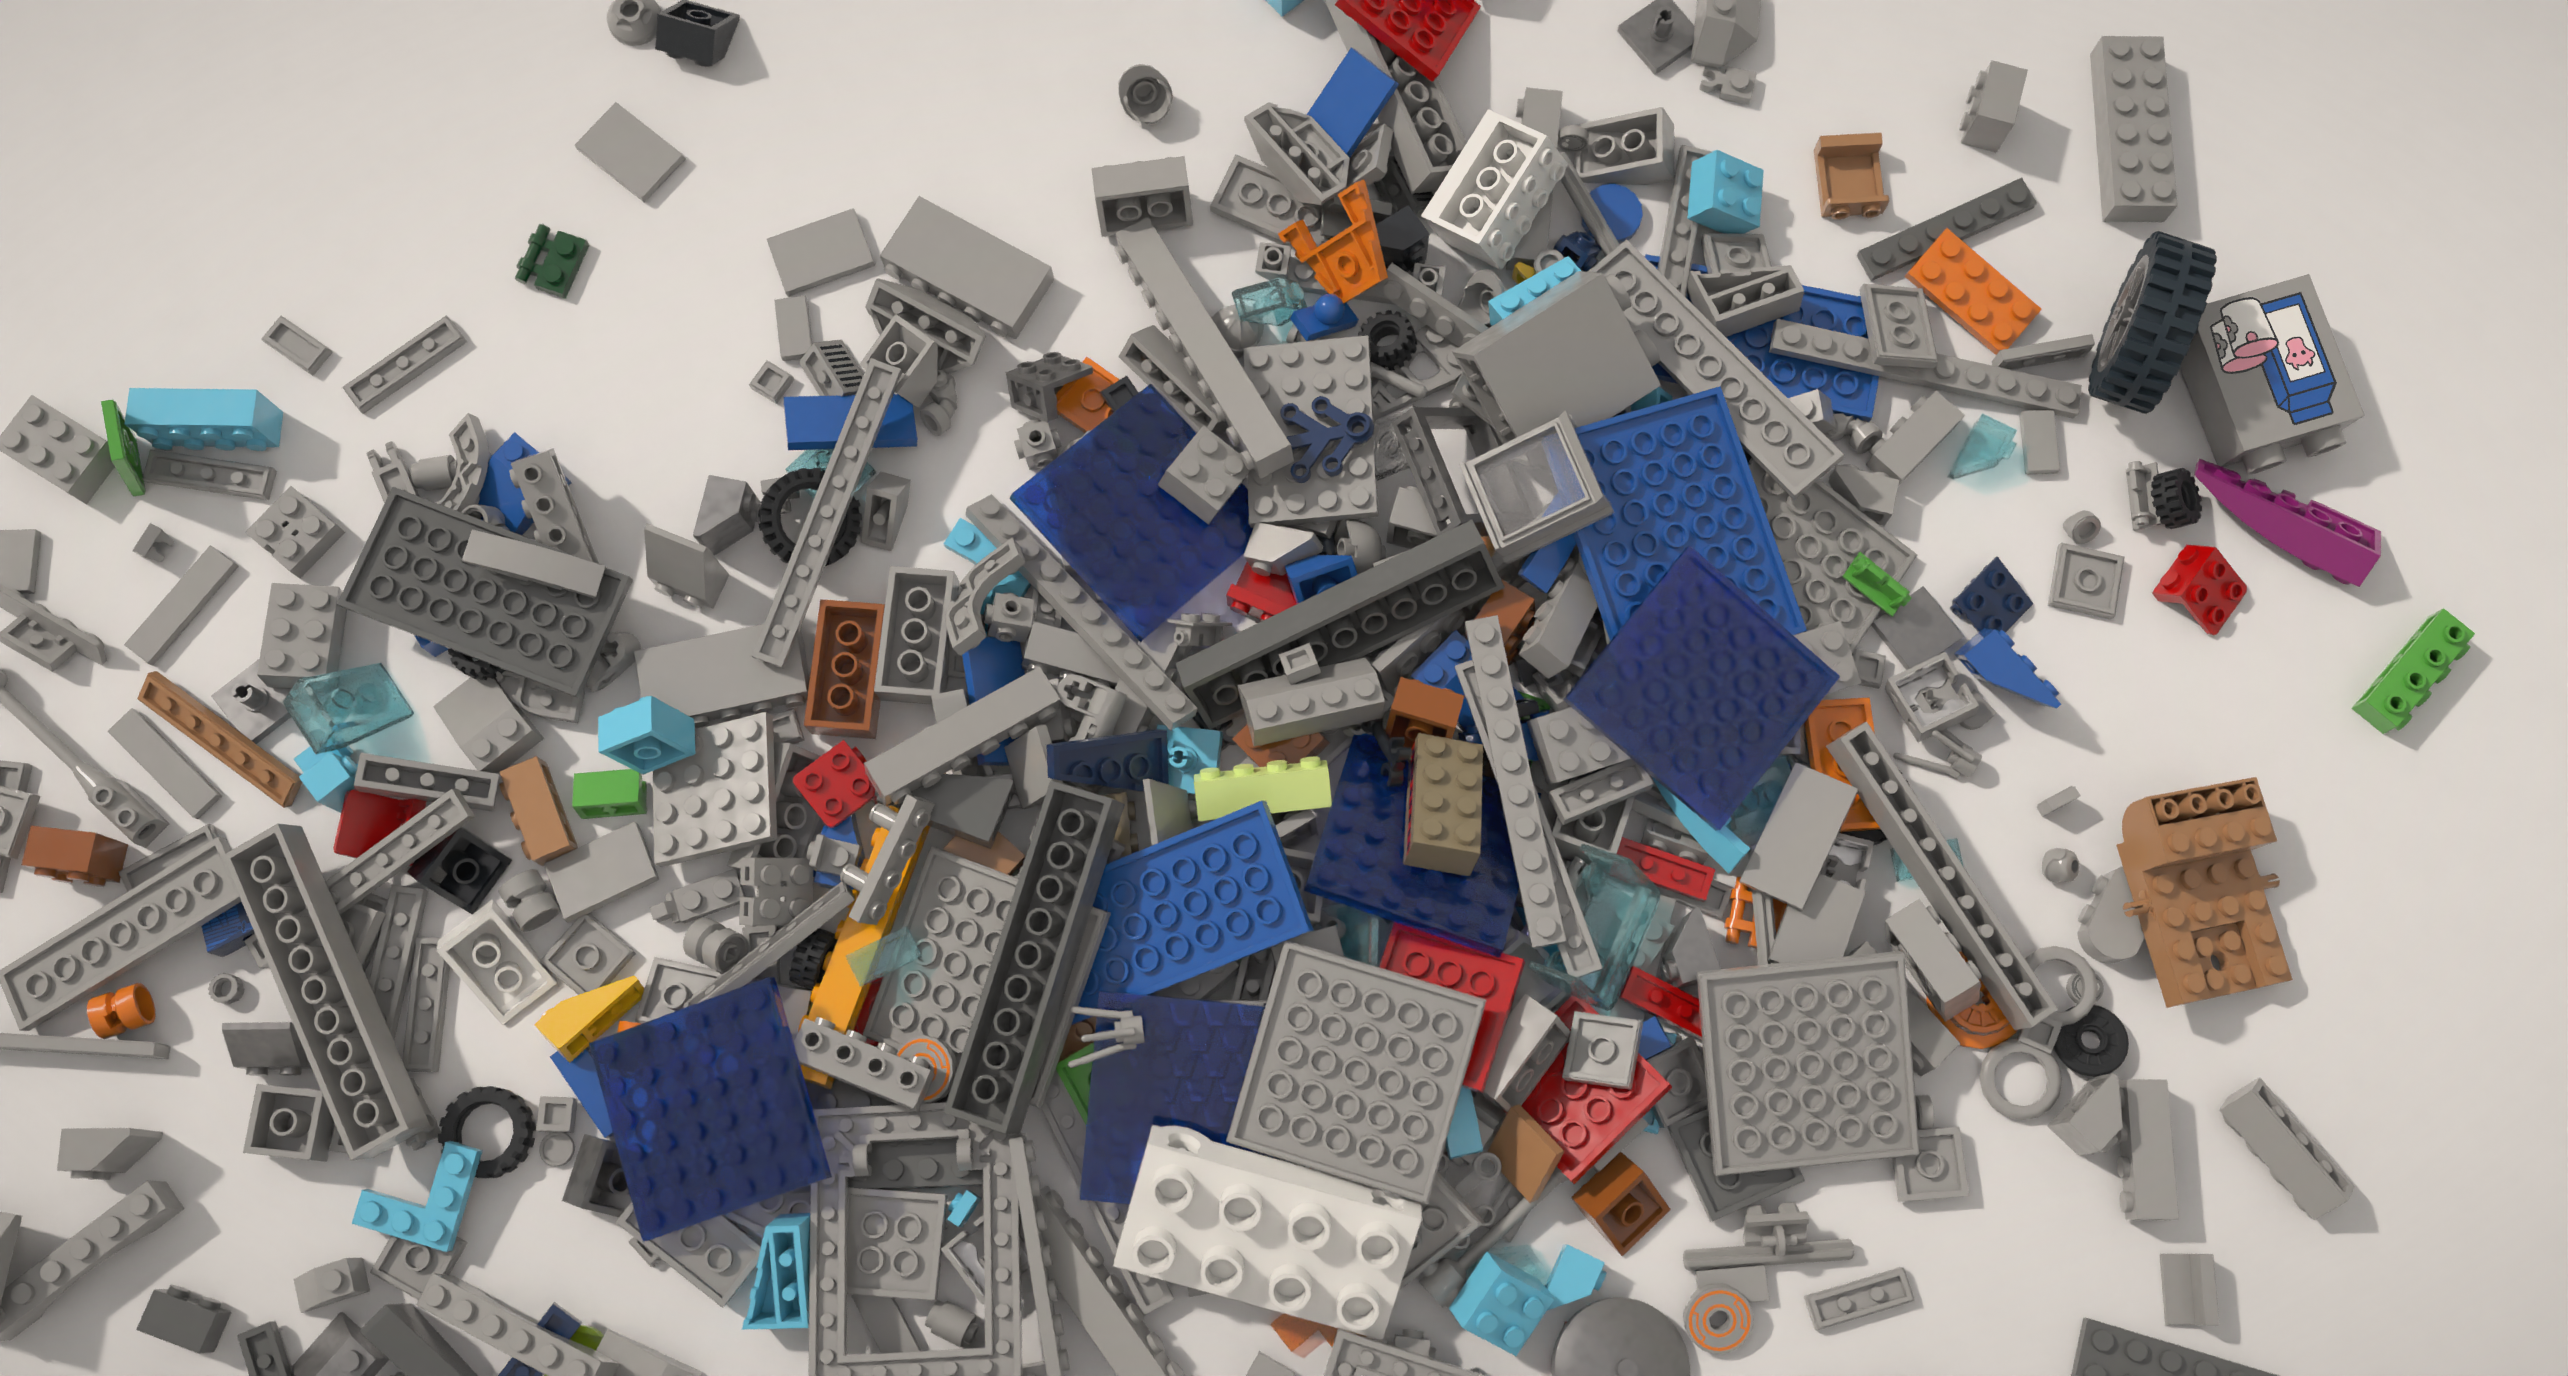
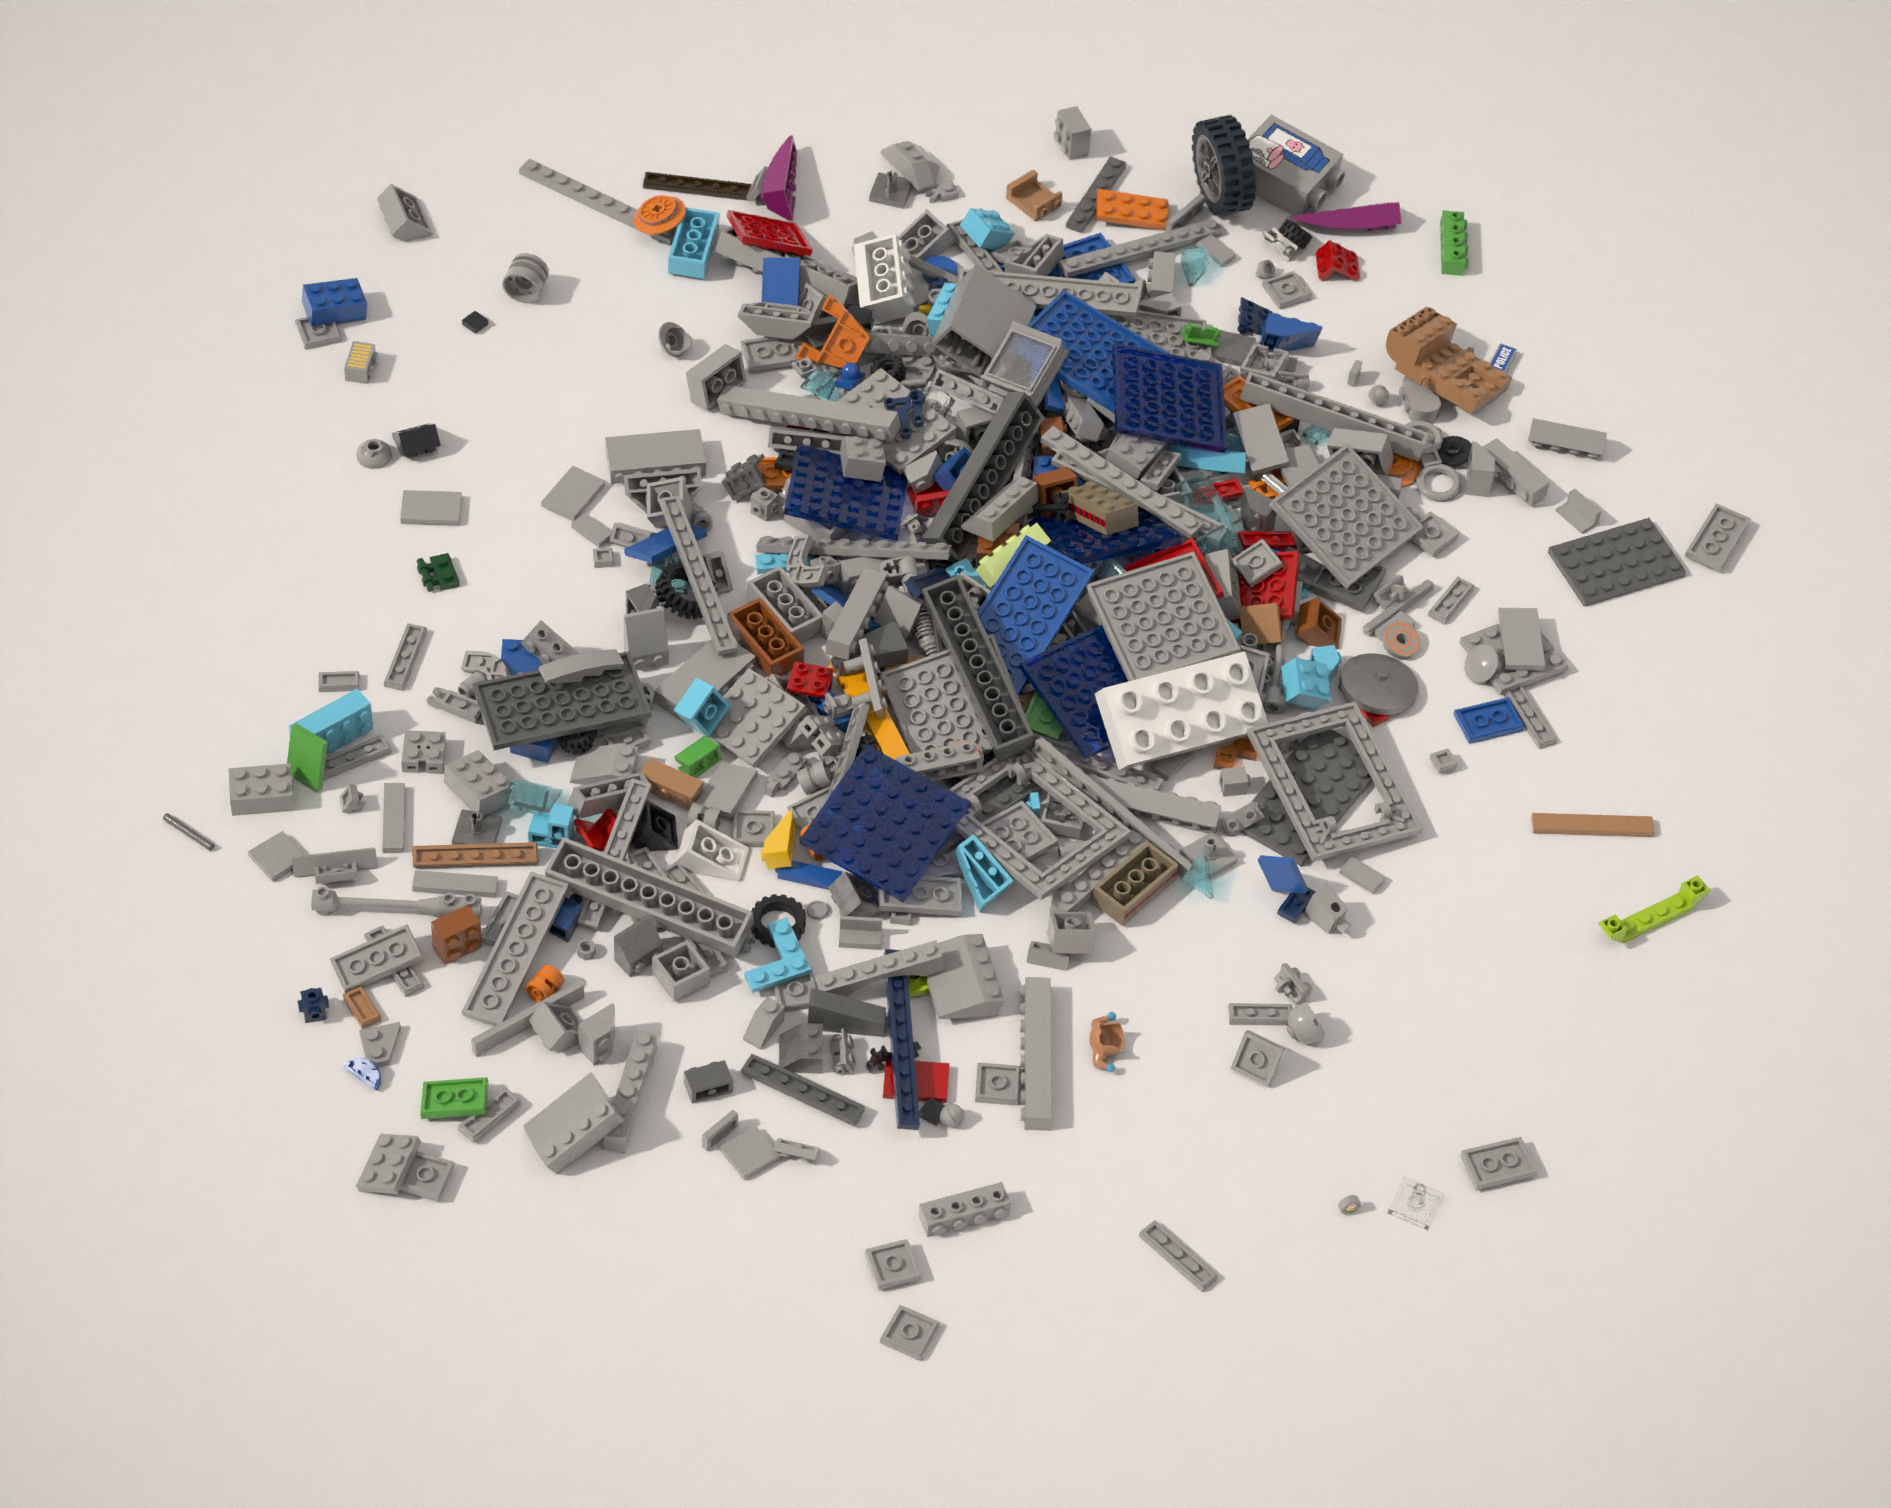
camera: 45 degrees left, 25 degrees down
(87, 1089) = (556, 1026): none -> light grey slope
(556, 1114) = (805, 892): light grey plate -> none
(568, 1237) = (860, 932): none -> light grey panel
(883, 956) = (902, 725): clear light blue tile -> none
(1127, 1030) = (1047, 667): light grey plant -> none
(1299, 663) = (983, 494): light grey plate -> none
(1898, 326) = (1114, 235): light grey tile -> none
(2133, 129) = (1141, 111): light grey brick -> none
(2311, 929) = (1503, 357): none -> tile

